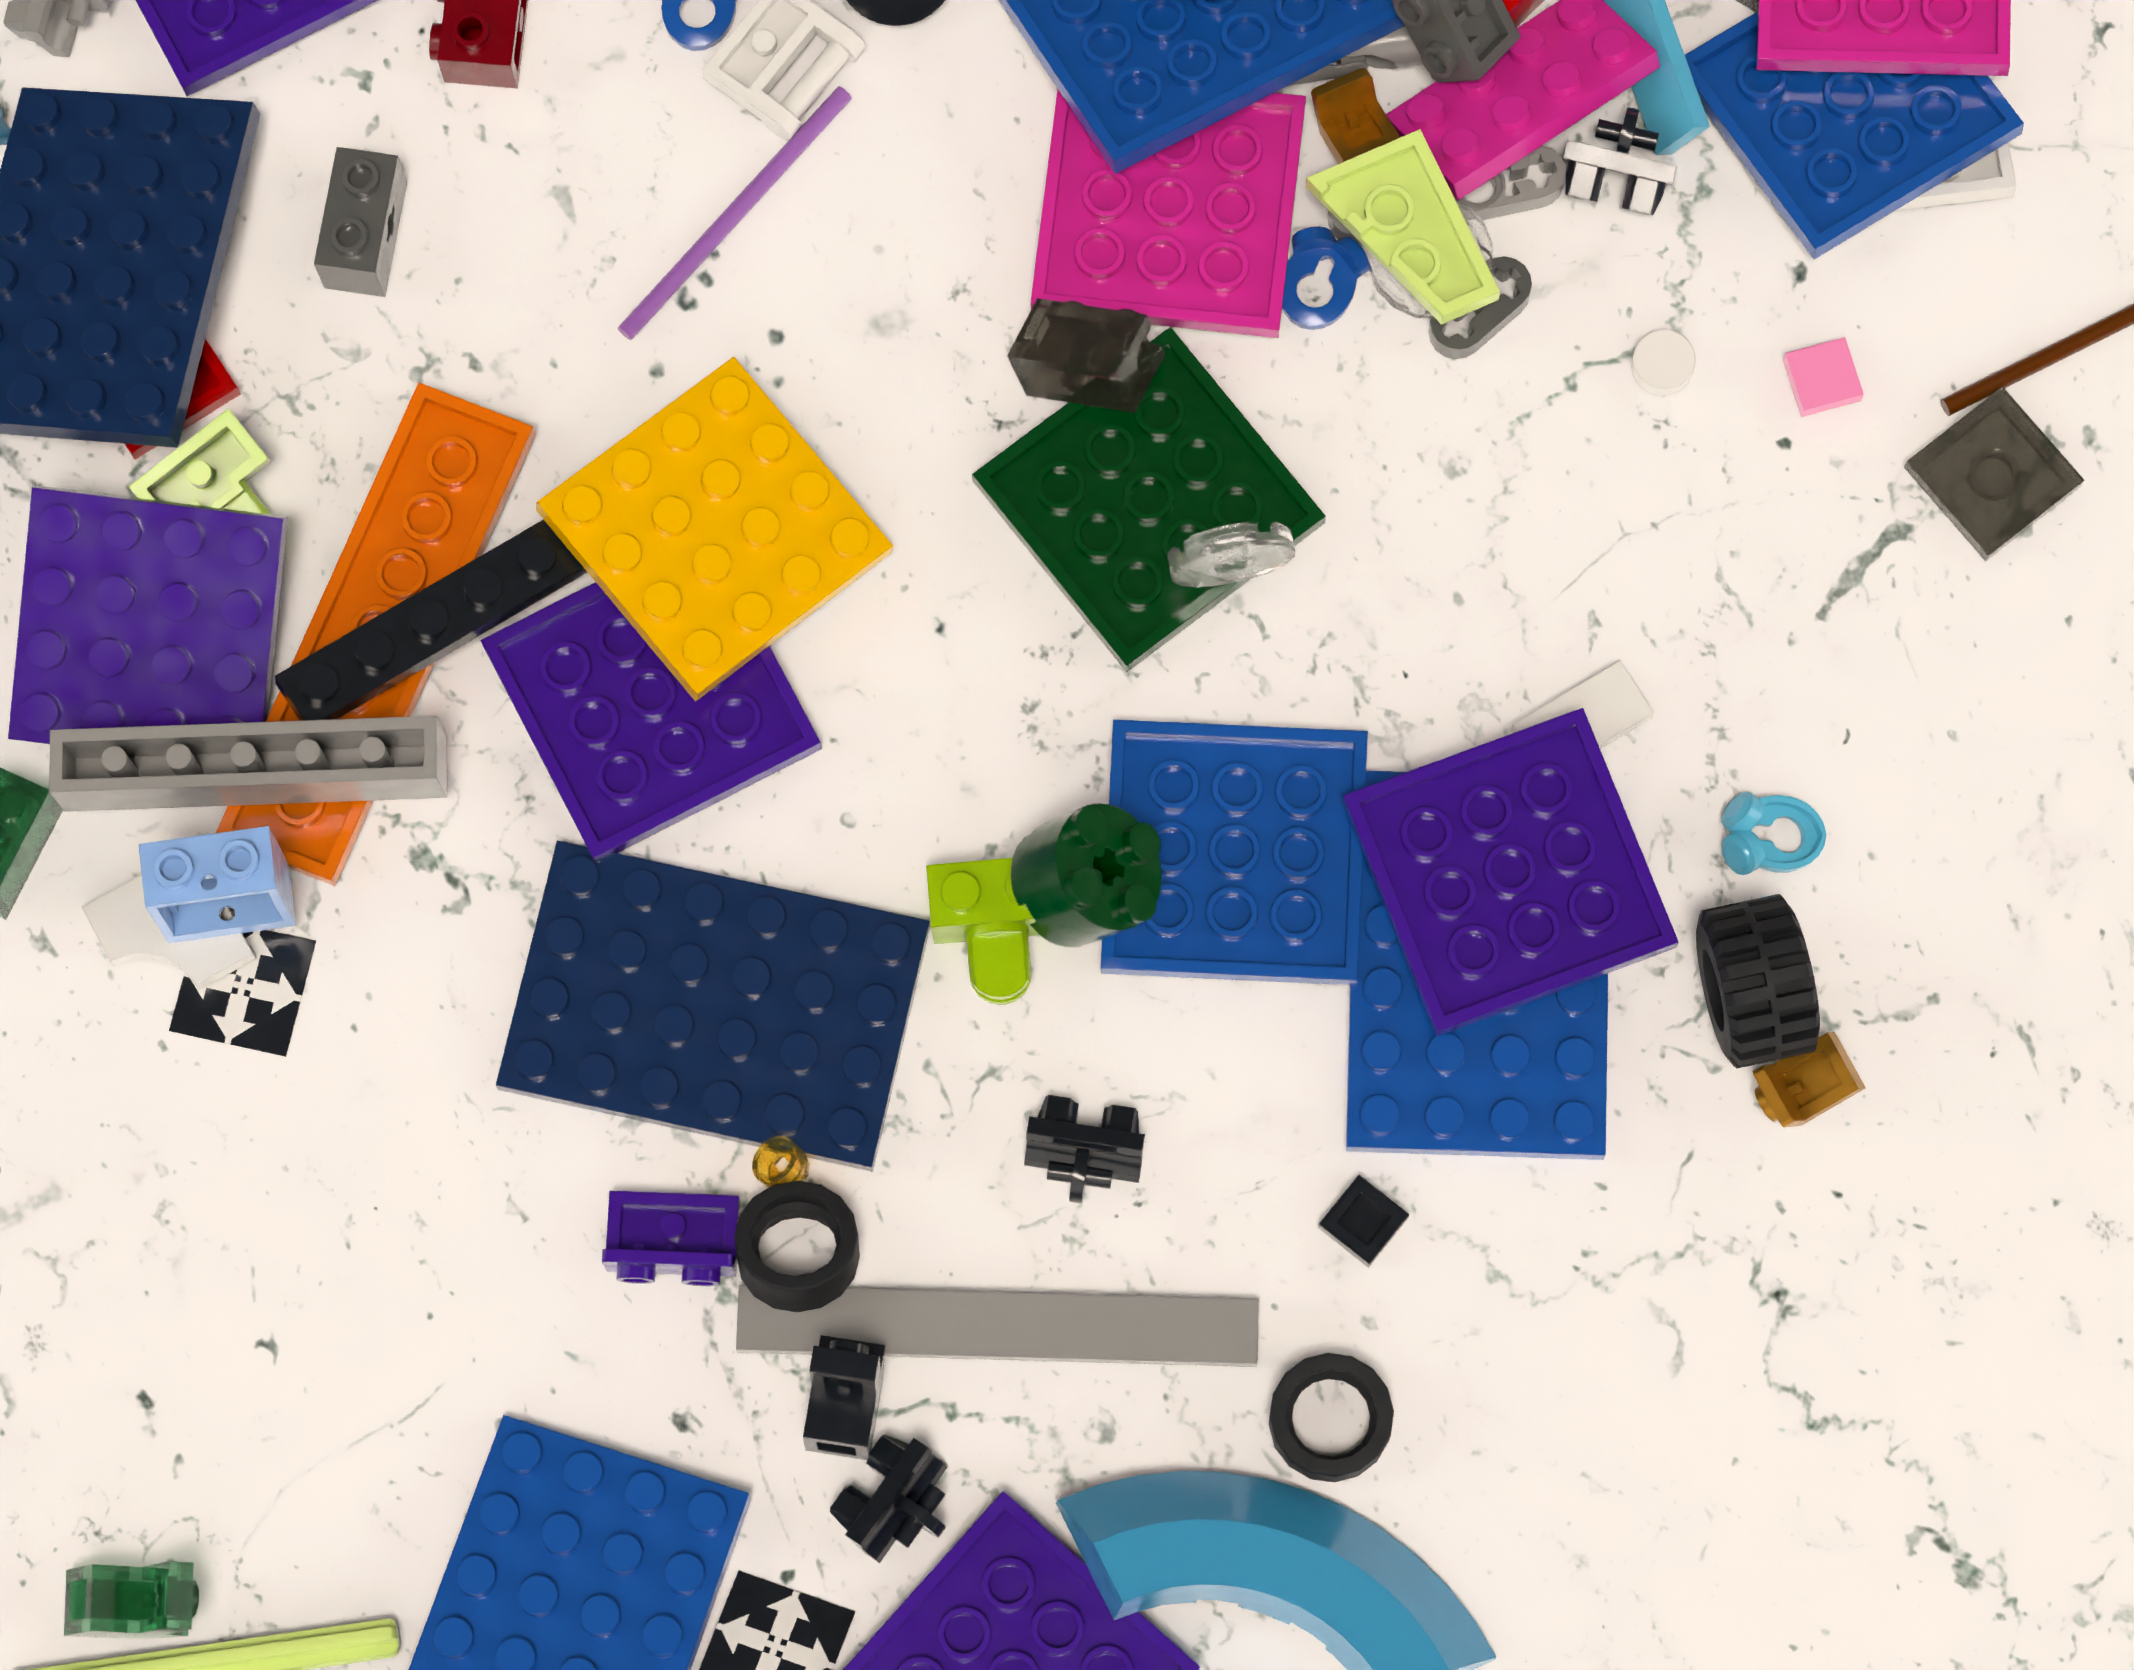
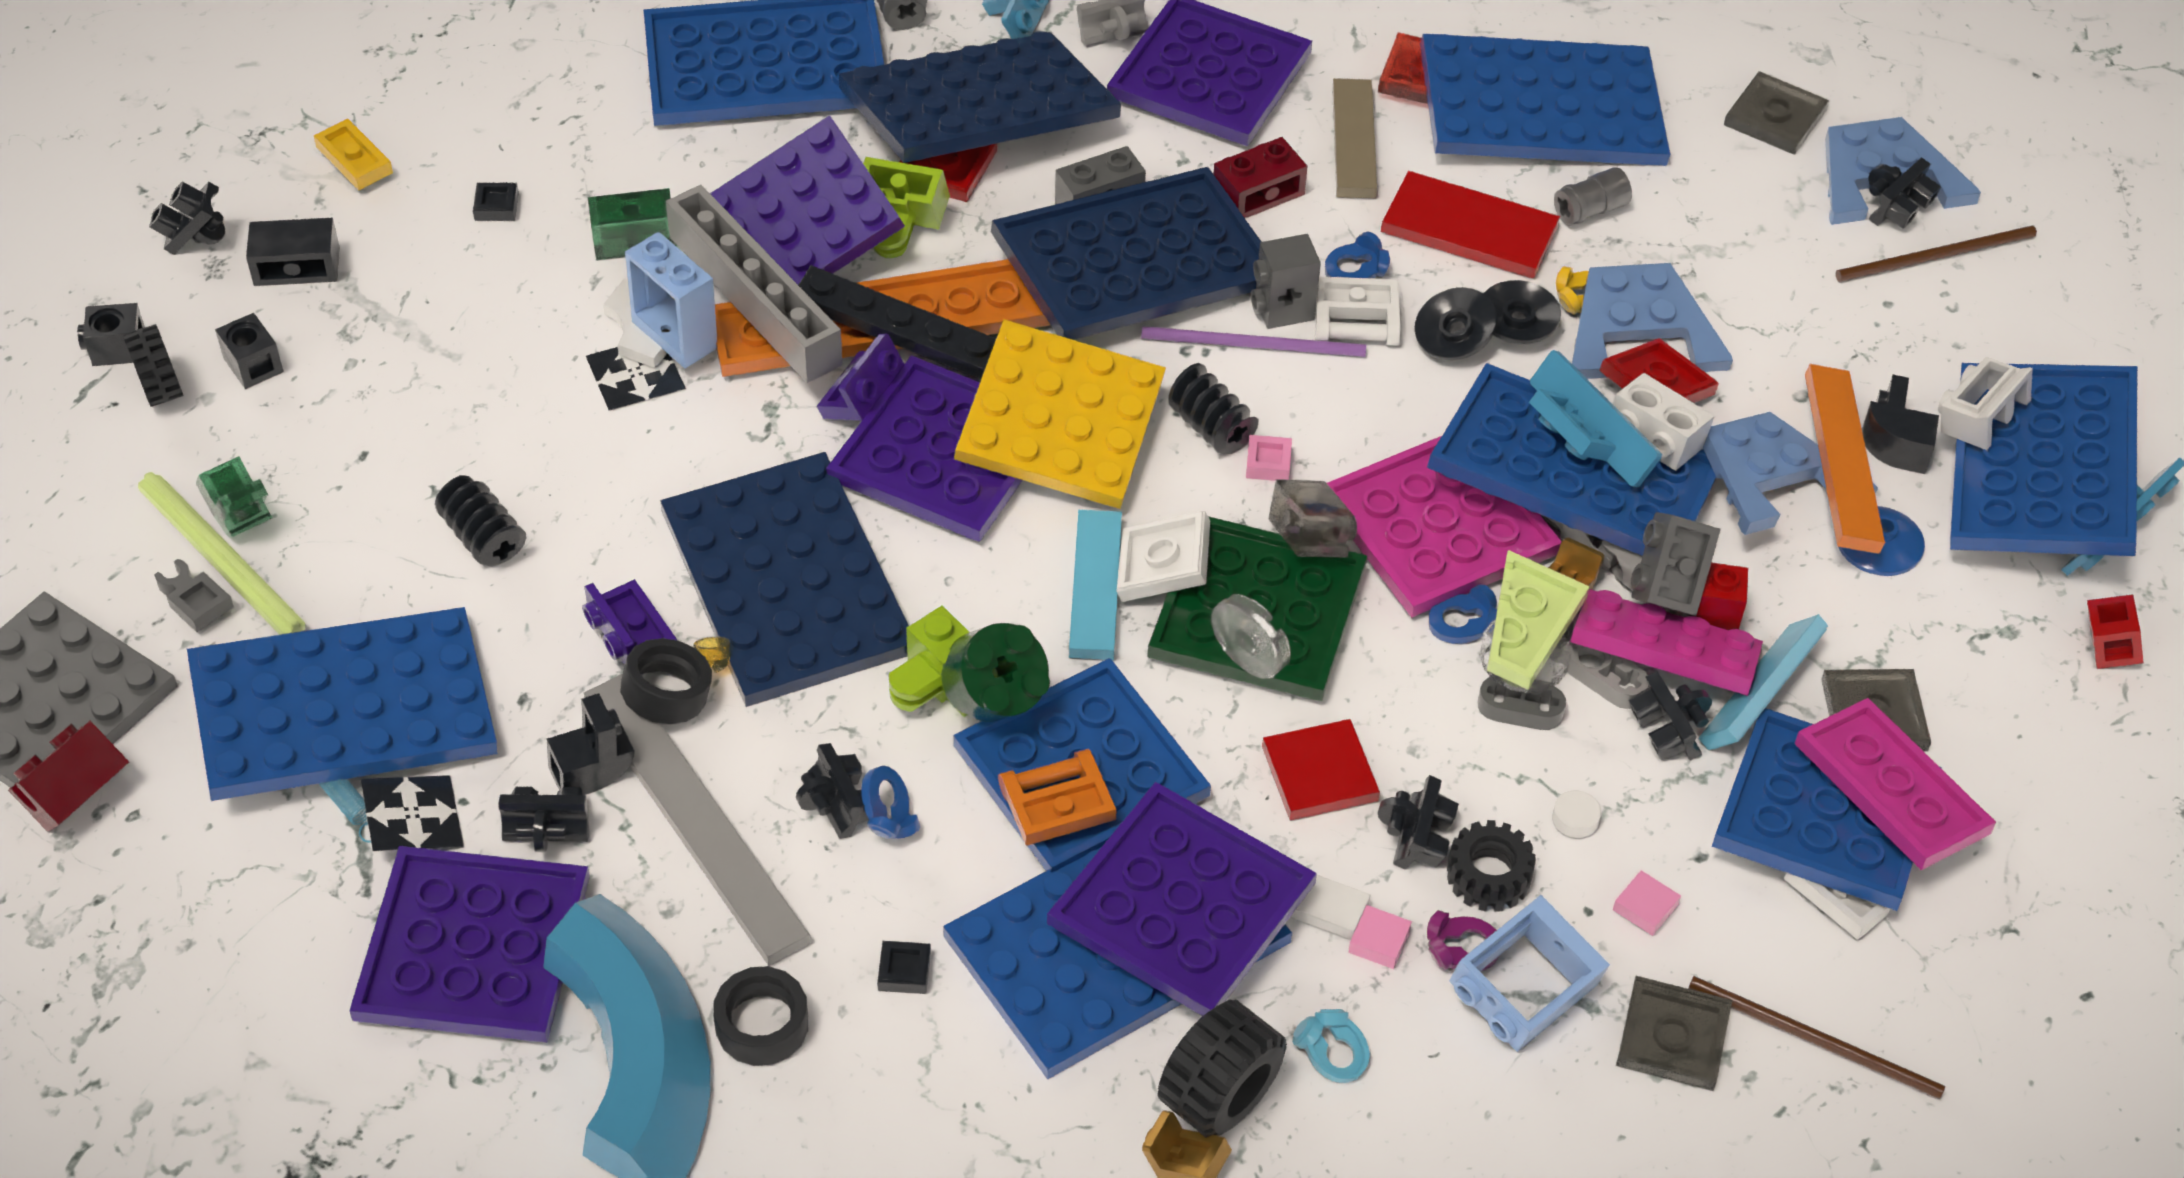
camera: 50 degrees right, 25 degrees down
(388, 1323) = (479, 520): none -> black piece
(484, 729) = (862, 381): none -> dark purple bracket
(510, 258) = (1132, 253): none -> dark blue plate
(700, 116) = (1286, 281): none -> dark grey brick
(823, 345) = (1211, 409): none -> black piece
(932, 326) = (1268, 457): none -> bright pink tile
(980, 657) = (1095, 585): none -> medium azure tile
(1010, 557) = (1163, 556): none -> white tile
(1173, 1104) = (901, 823): none -> blue piece
(1299, 919) = (1060, 807): none -> orange plate
(1415, 592) = (1320, 769): none -> red tile
(1564, 543) = (1412, 820): none -> black hips
(1674, 687) = (1380, 936): none -> bright pink tile
(1678, 469) = (1494, 843): none -> black tyre
(1754, 626) = (1443, 927): none -> magenta piece
(1833, 512) = (1558, 943): none -> light blue window

